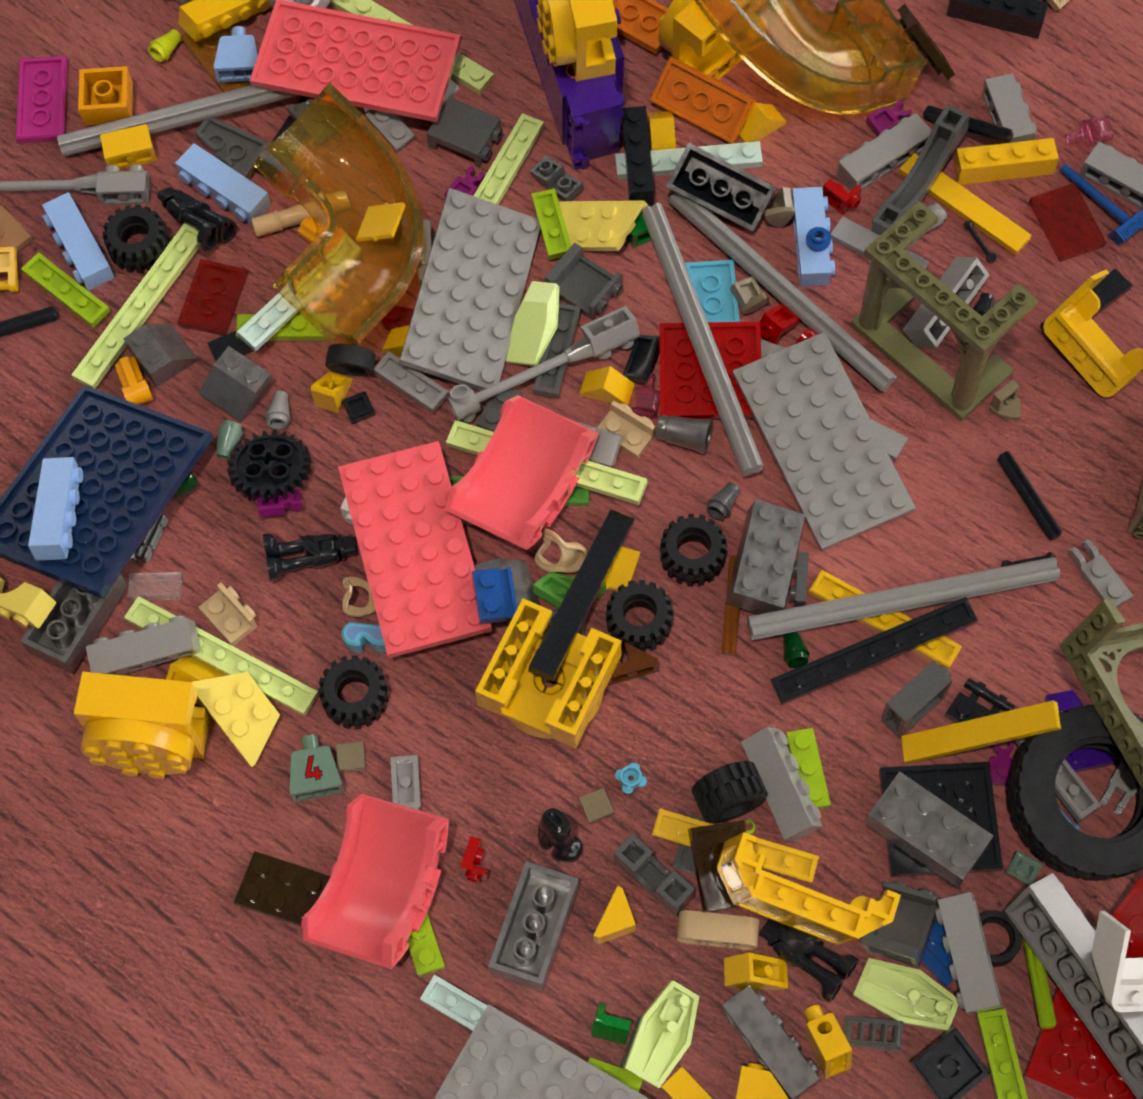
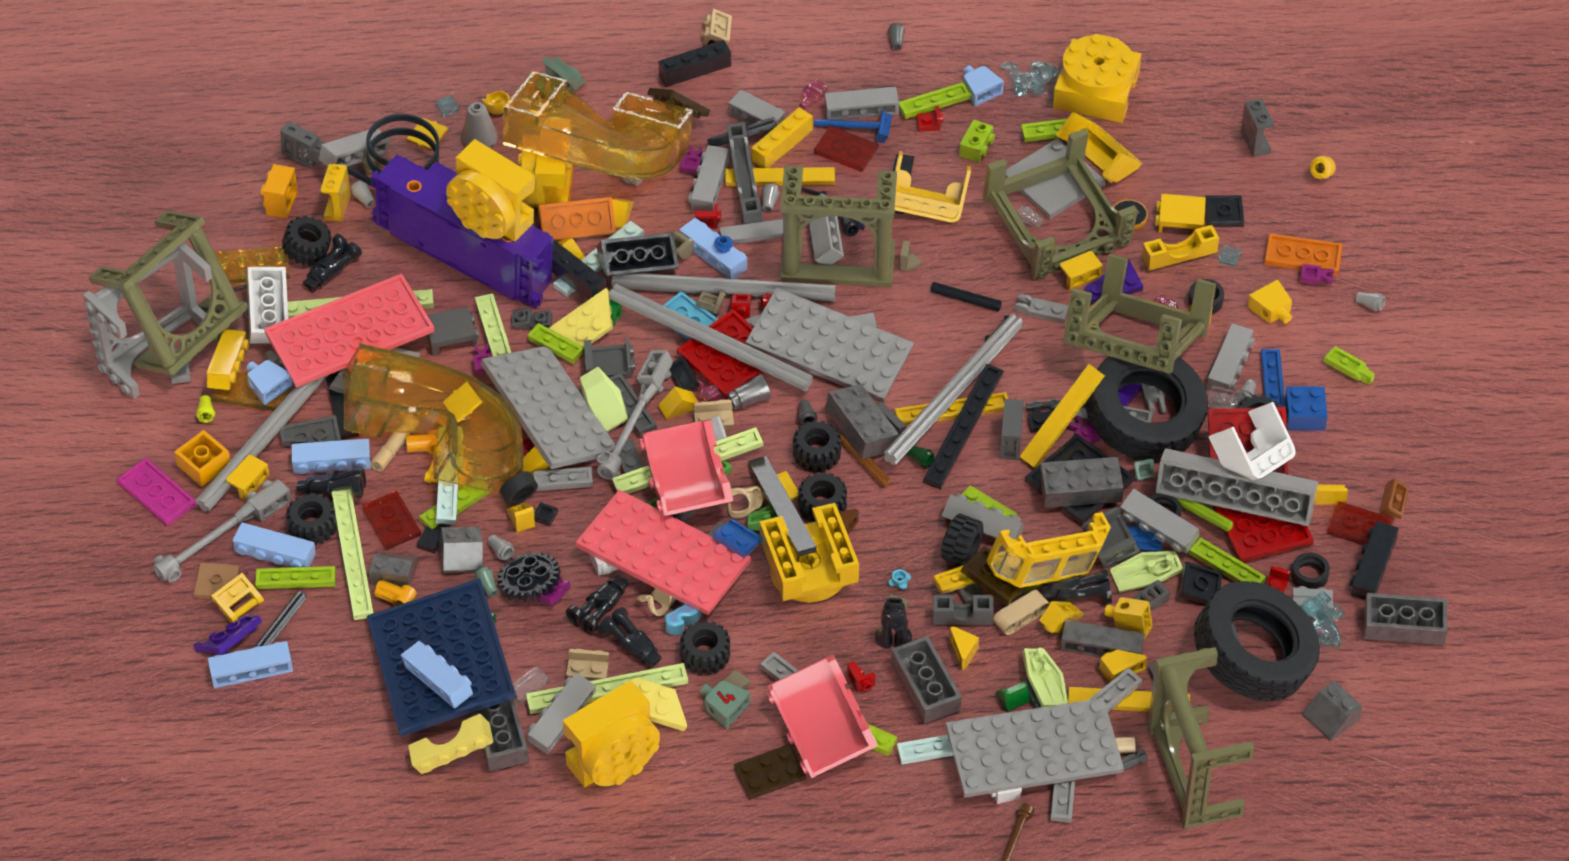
camera: 45 degrees left, 15 degrees down
(296, 631) = (635, 642): none -> black piece

